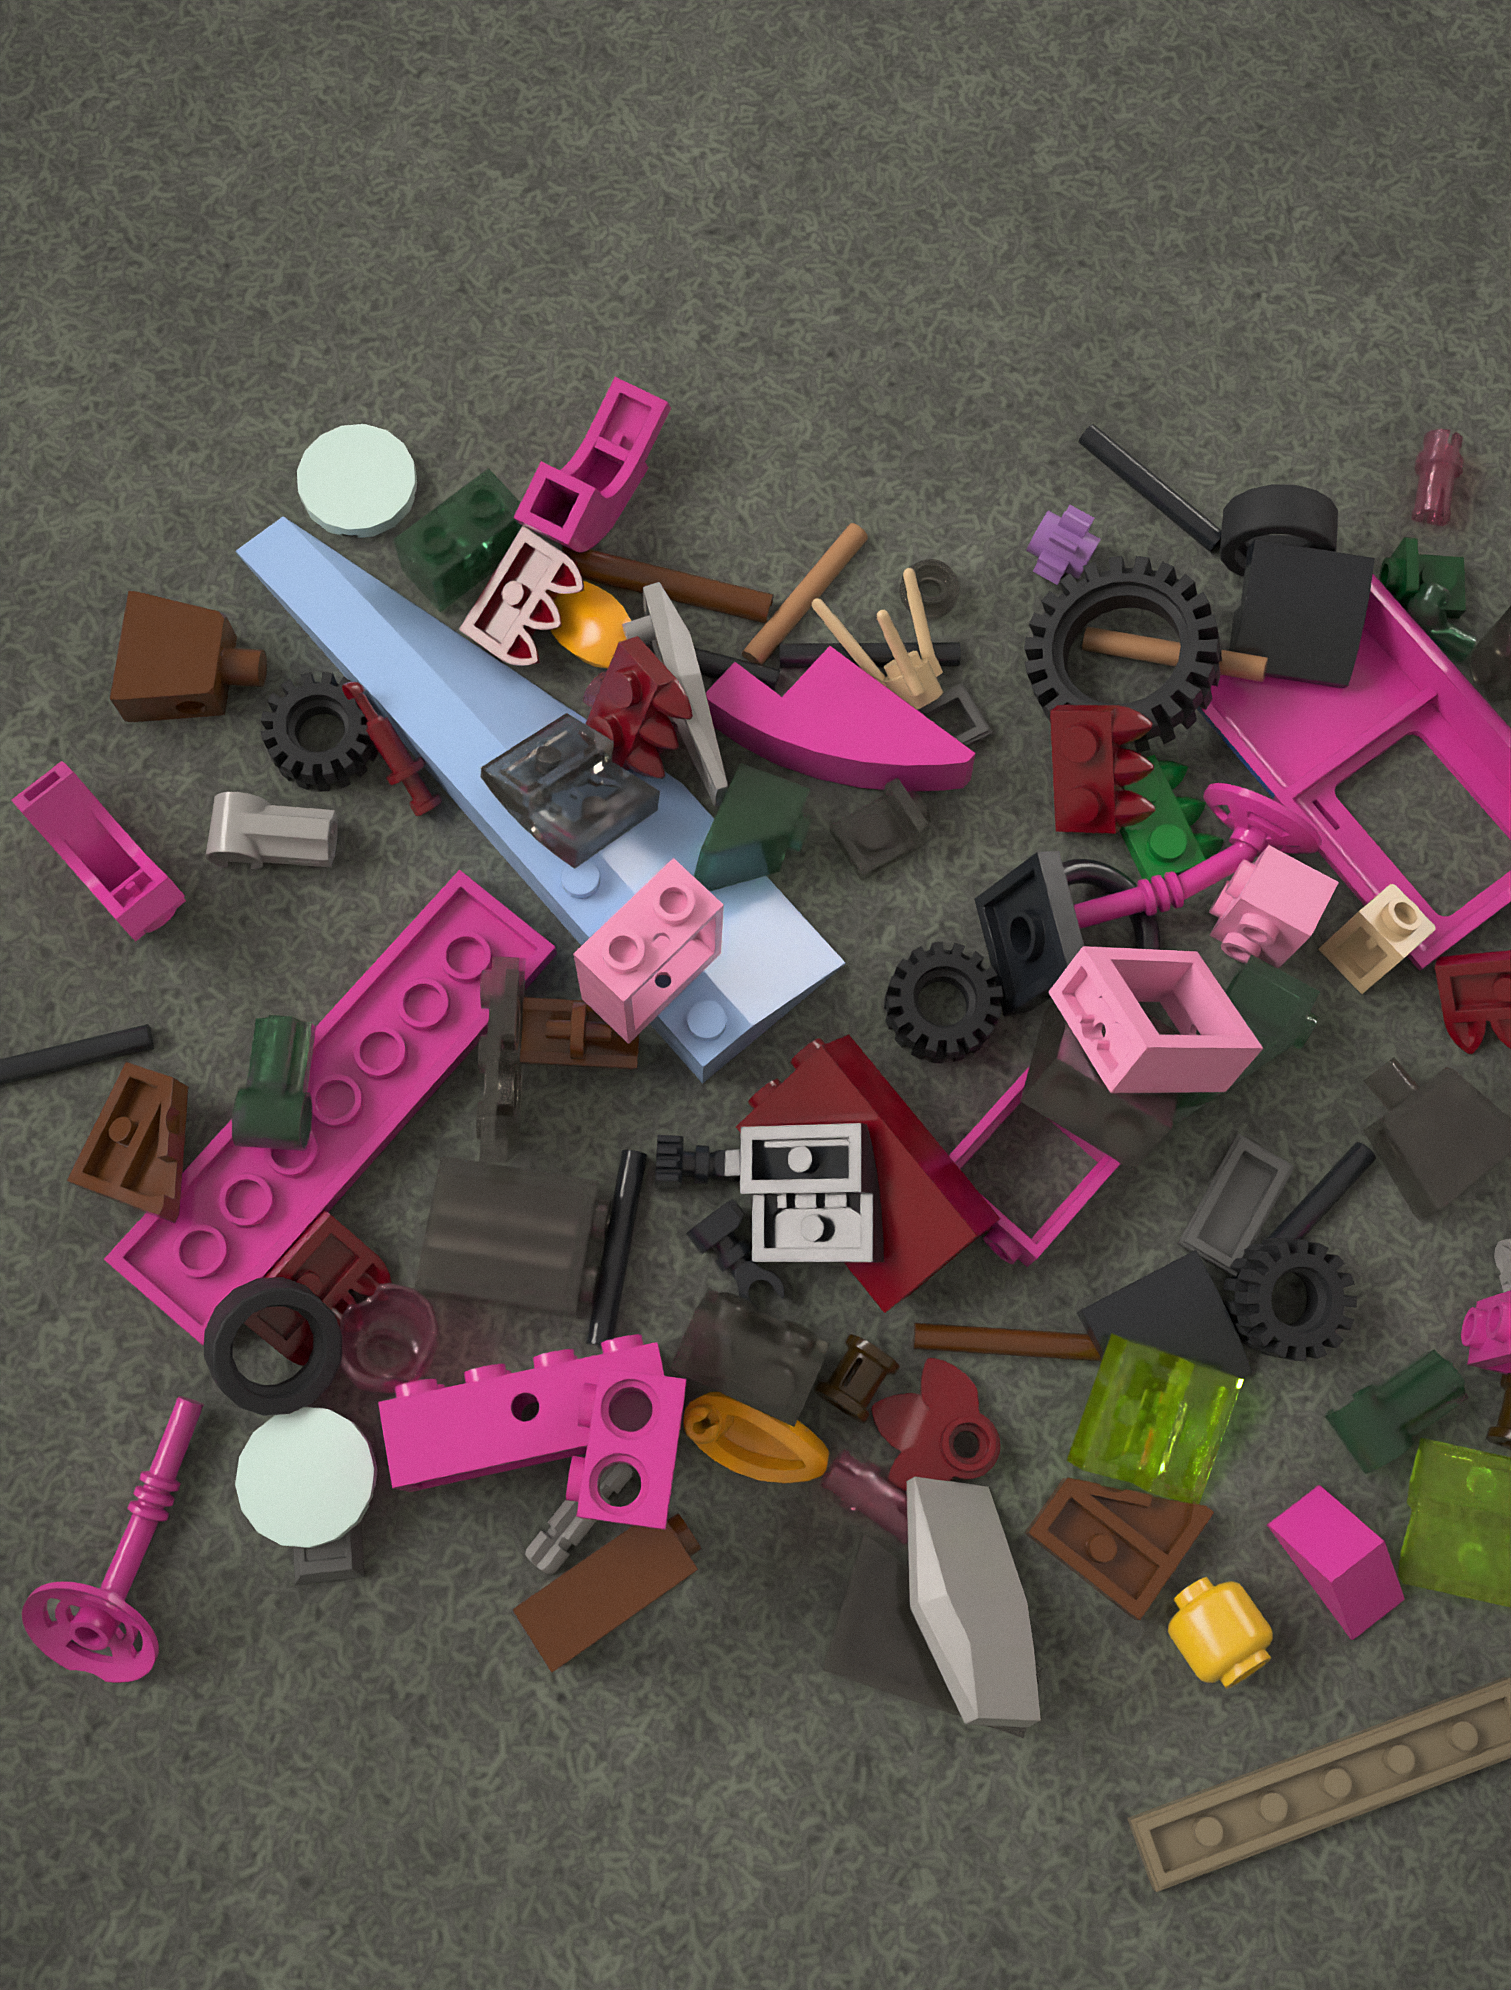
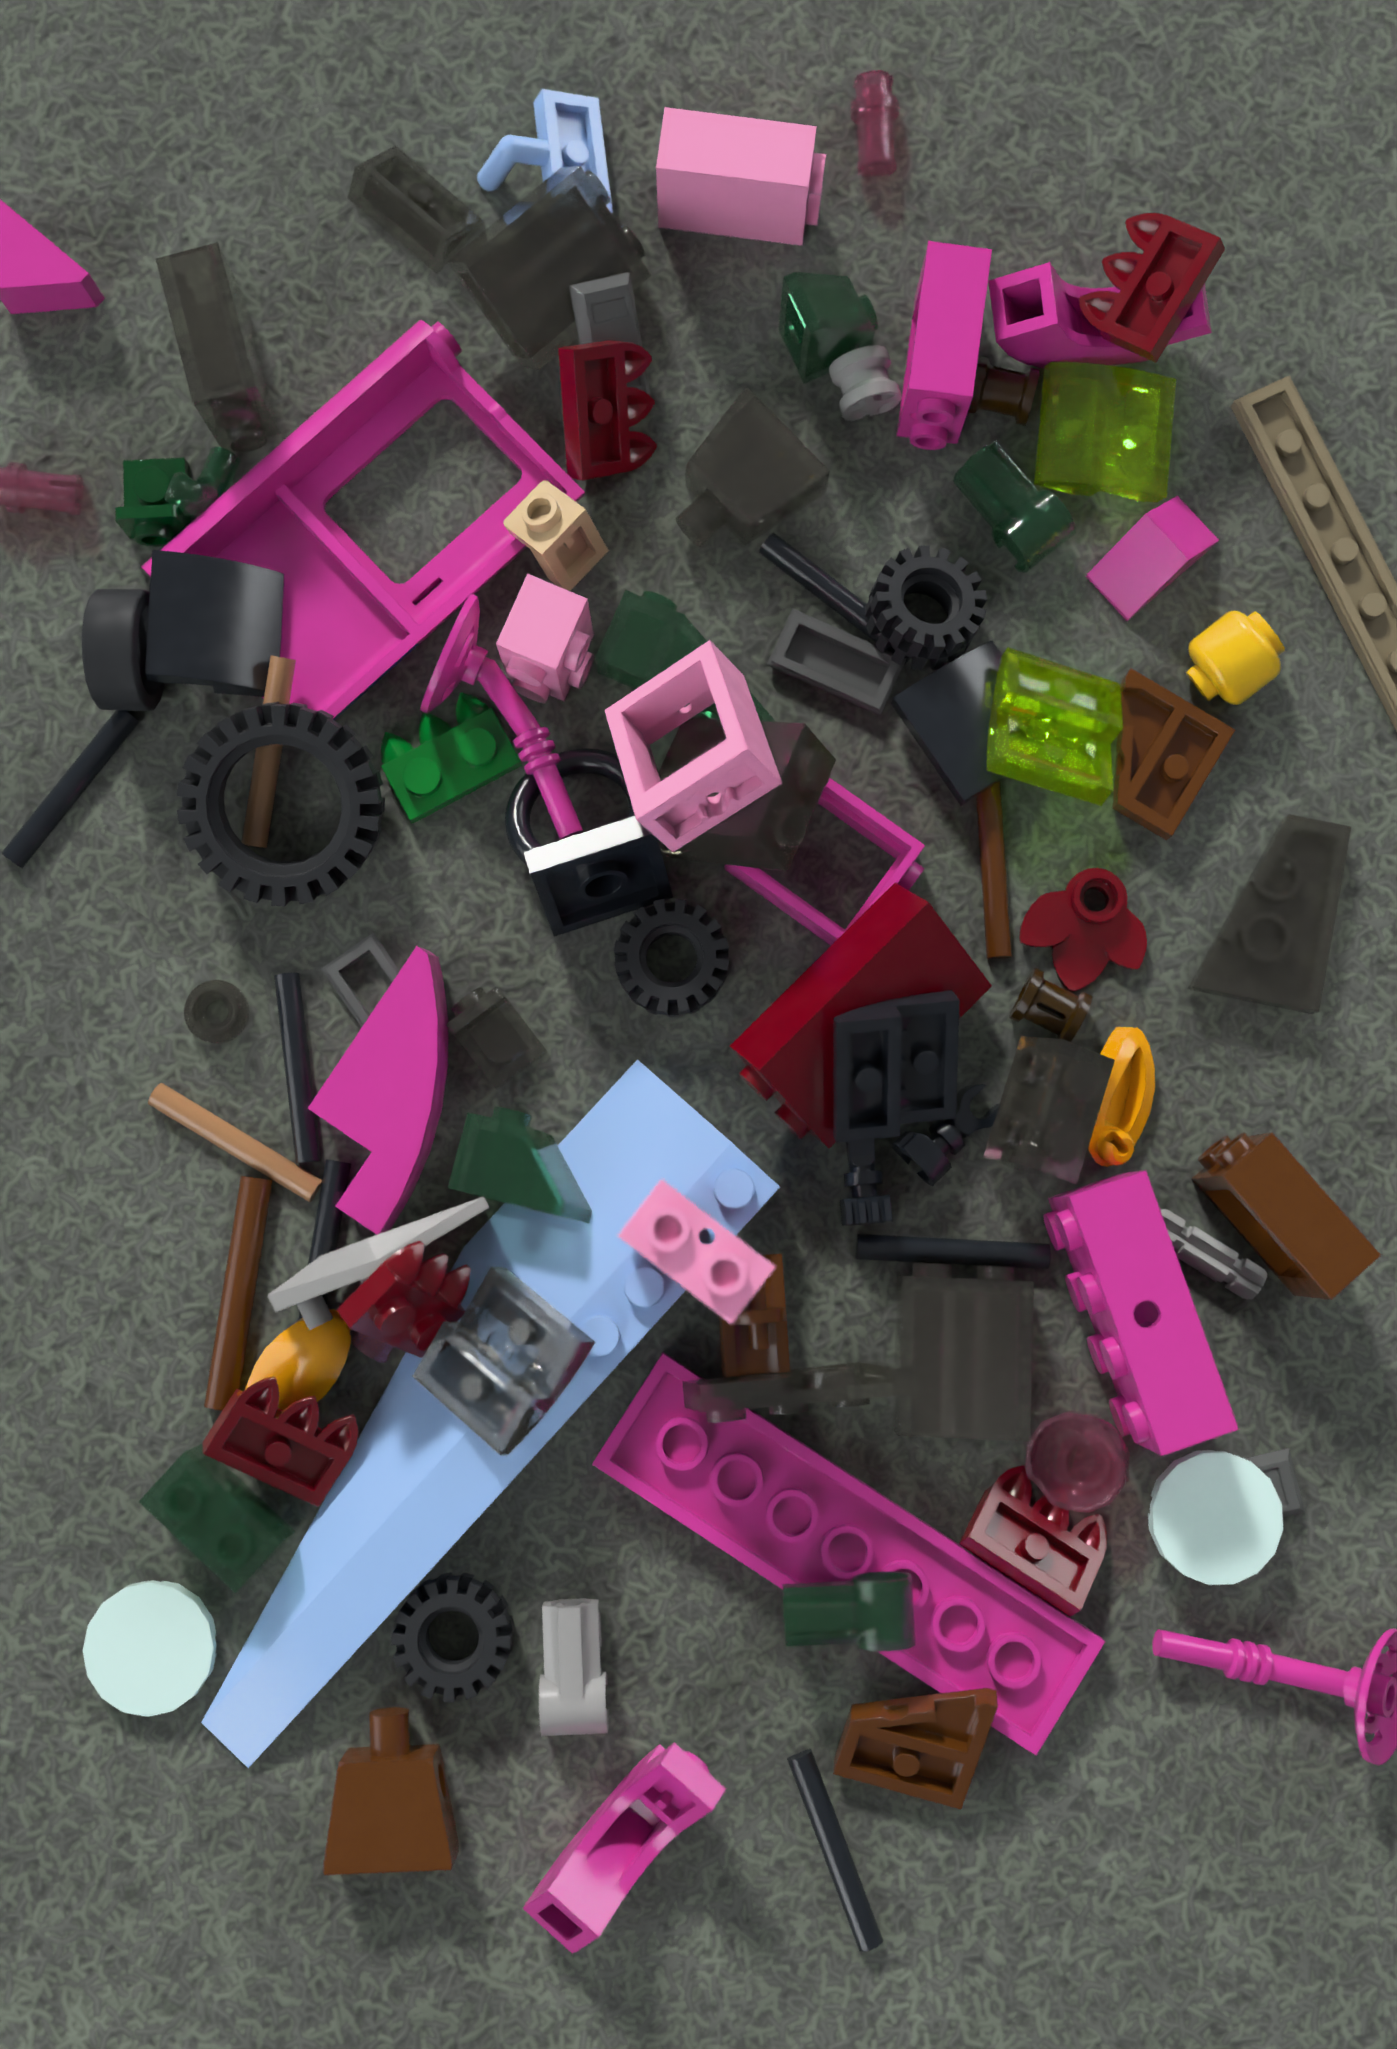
camera: 90 degrees left, 10 degrees up
(308, 1381) = (1140, 1546): black tyre -> none
(394, 752) = (486, 1540): dark red piece -> none
(593, 488) = (155, 1393): dark pink arch -> none
(648, 1450) = (1182, 1194): dark pink brick -> none
(869, 1493) = (1155, 982): clear pink pin -> none
(908, 674) = (324, 1025): tan plant -> none
(971, 1602) = (1247, 882): light grey piece -> none
(1063, 544) = (155, 874): medium lavender gear -> none
(1093, 767) = (412, 825): dark red plate -> none

